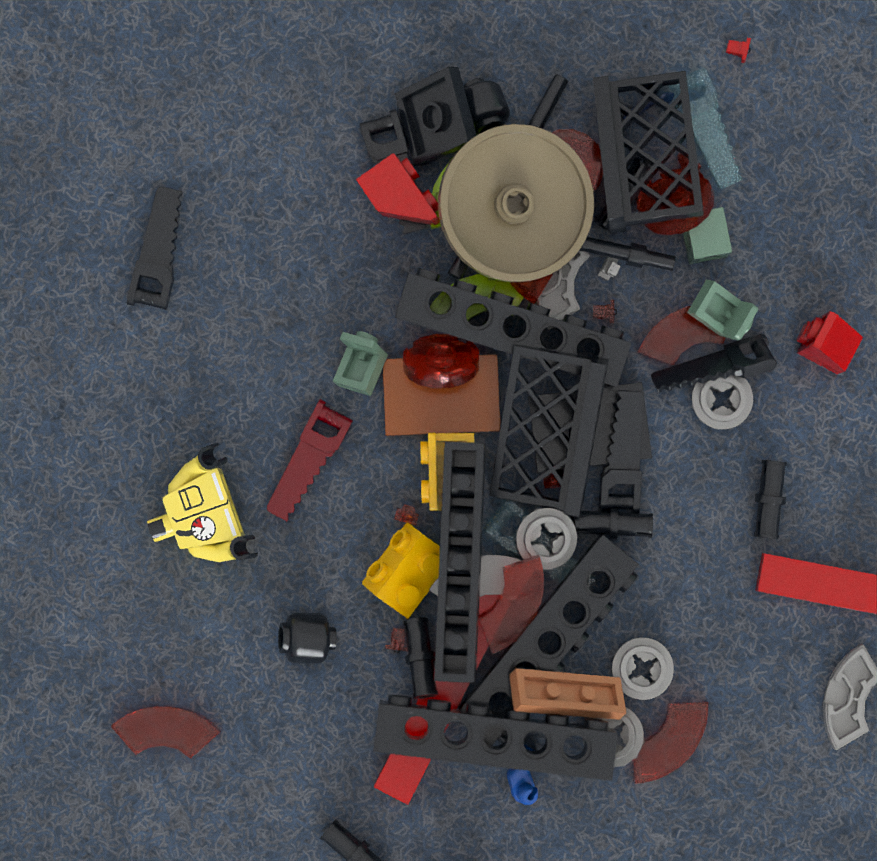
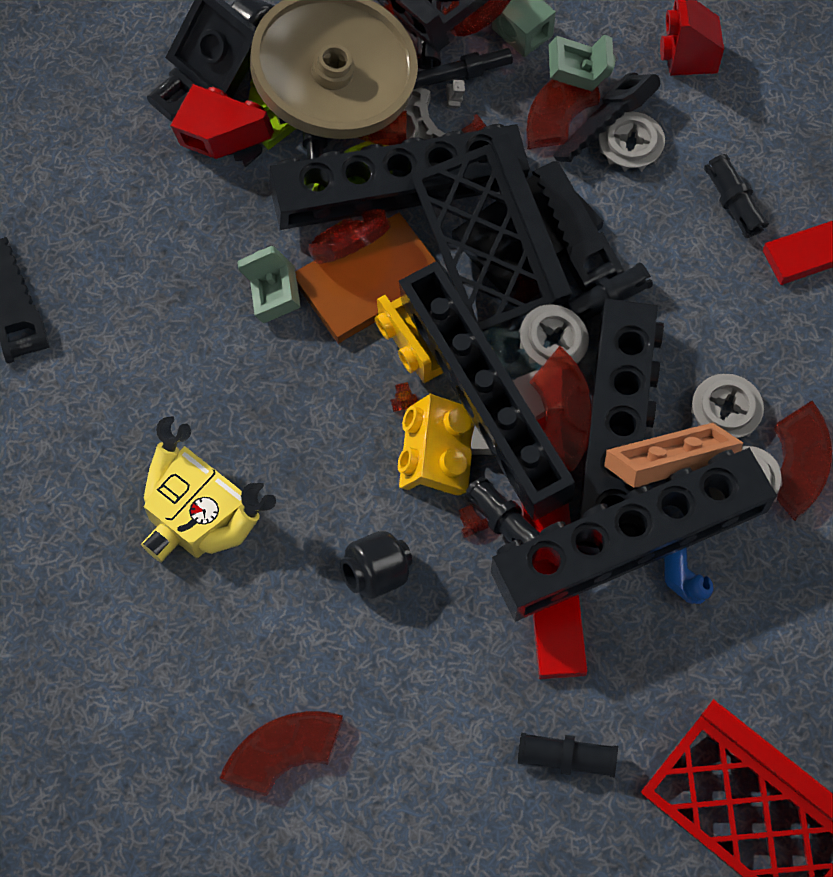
camera: 25 degrees left, 20 degrees down
(307, 459) = (274, 404): dark red piece -> none

